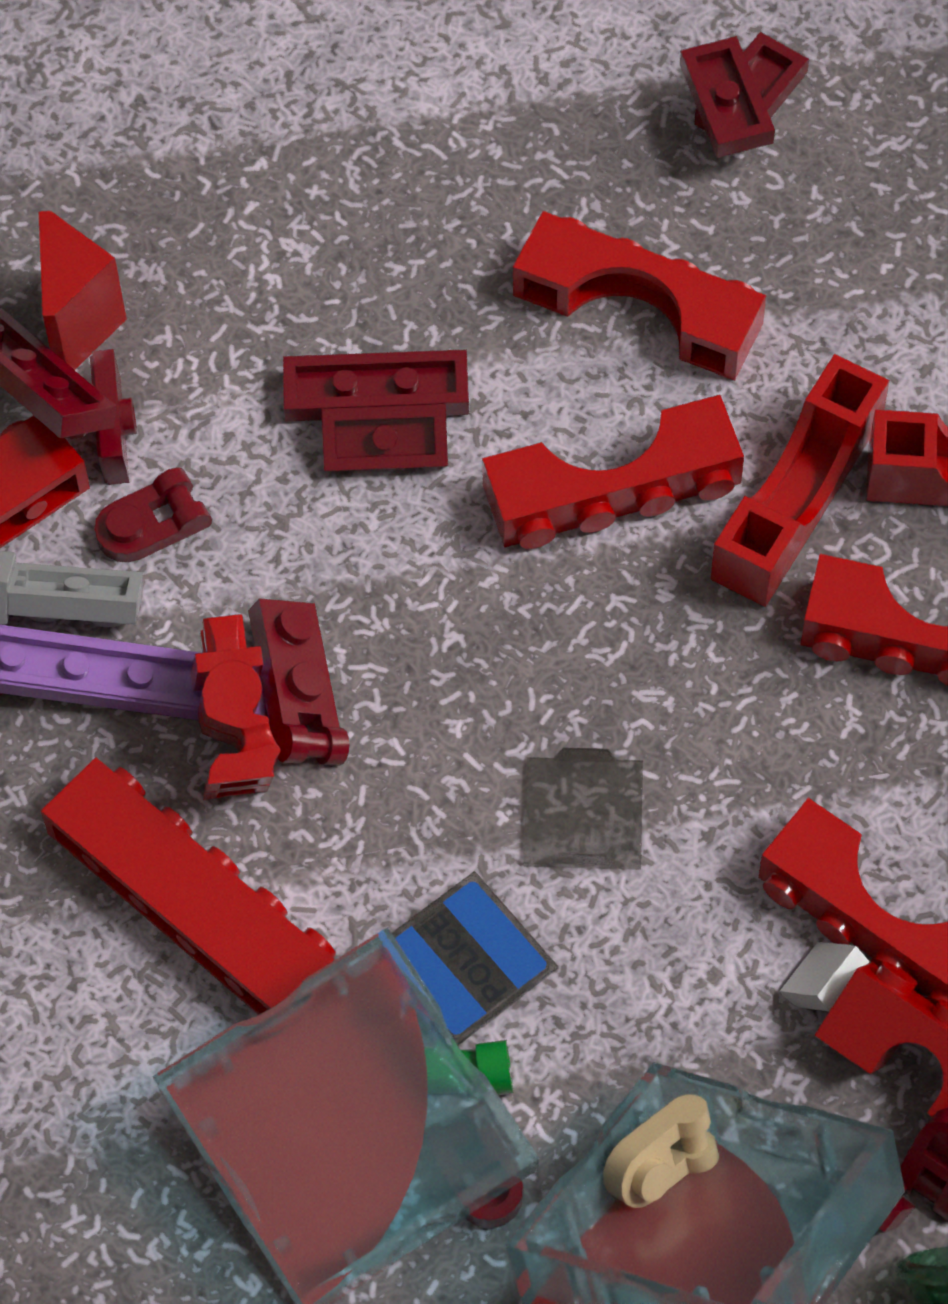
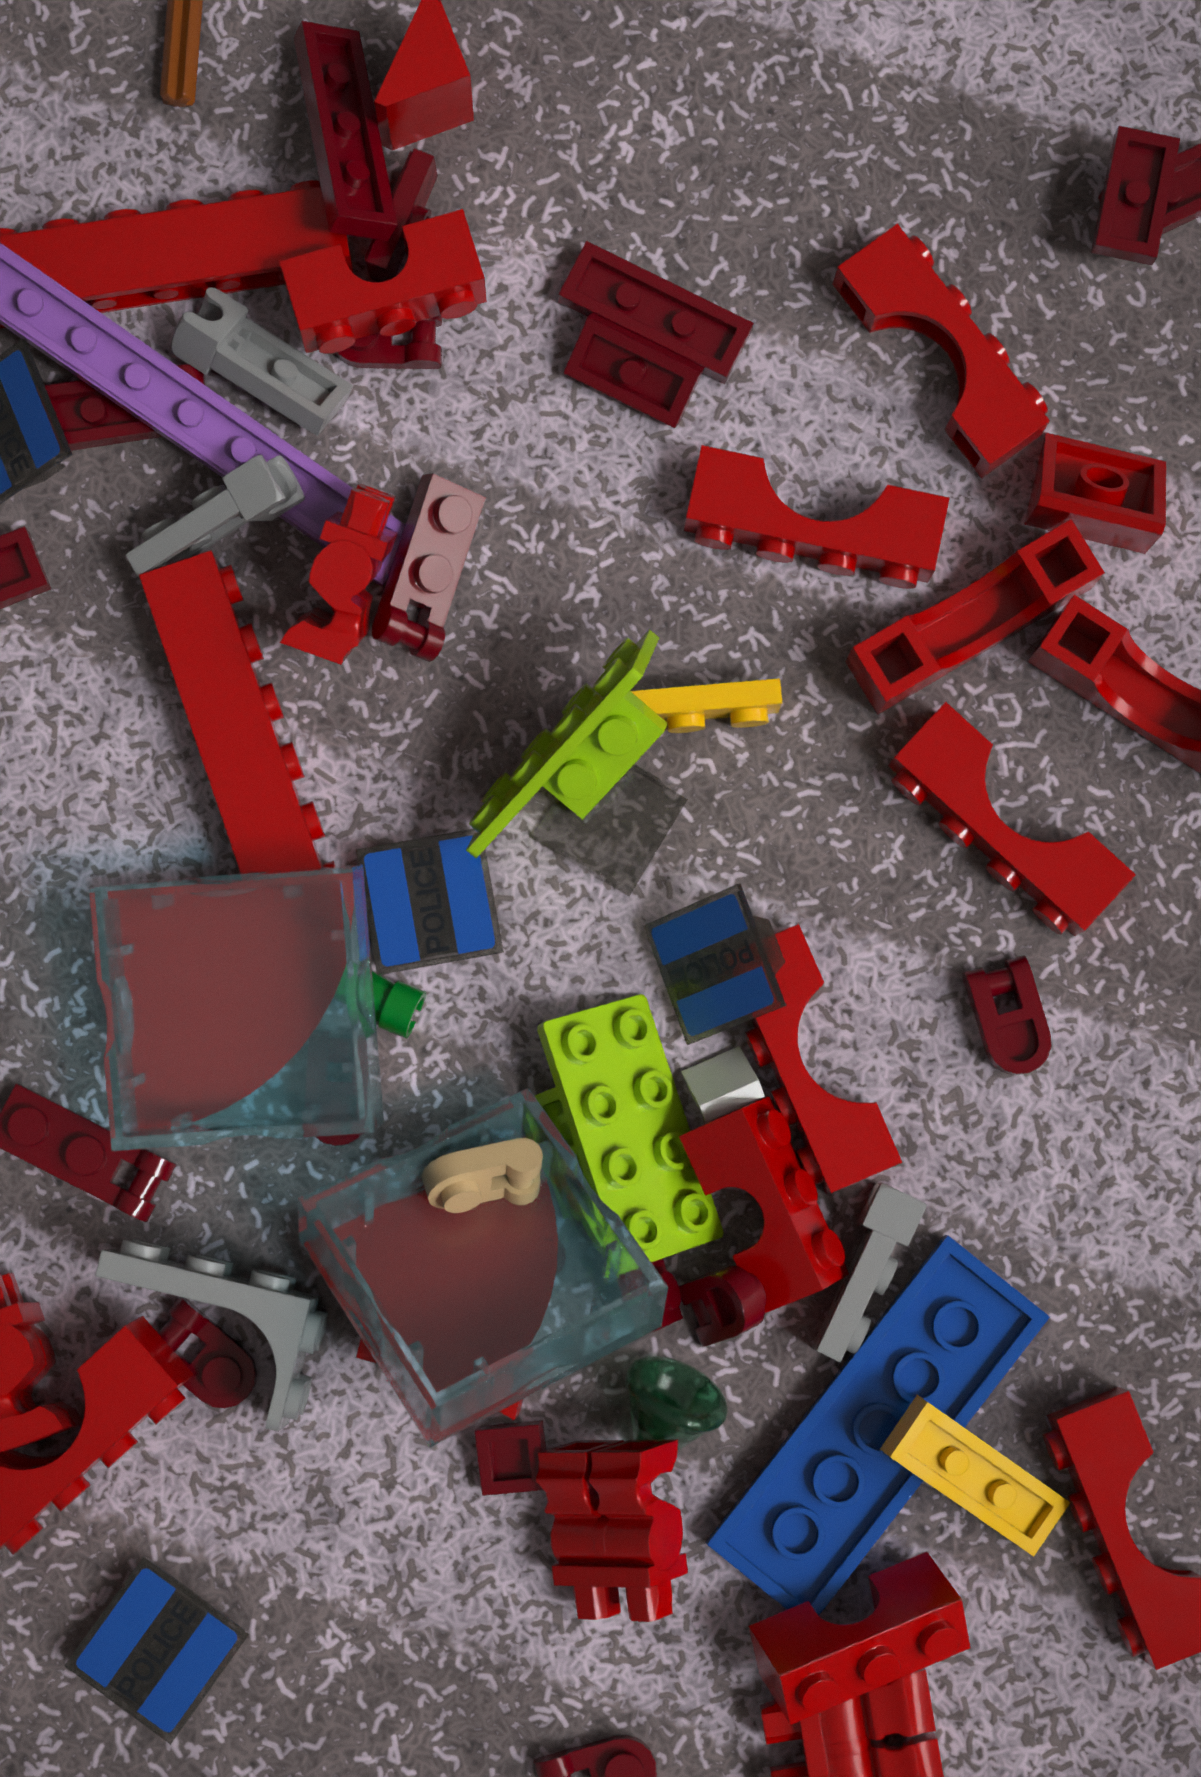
camera: 20 degrees right, 20 degrees up
(97, 502) = (338, 306): none -> red arch
(112, 682) = (253, 493): none -> light grey plate
(535, 745) = (587, 749): none -> lime bracket
(594, 680) = (689, 706): none -> yellow plate
(749, 1040) = (625, 1123): none -> lime bracket
(756, 869) = (717, 963): none -> piece
(861, 329) = (1104, 491): none -> red slope

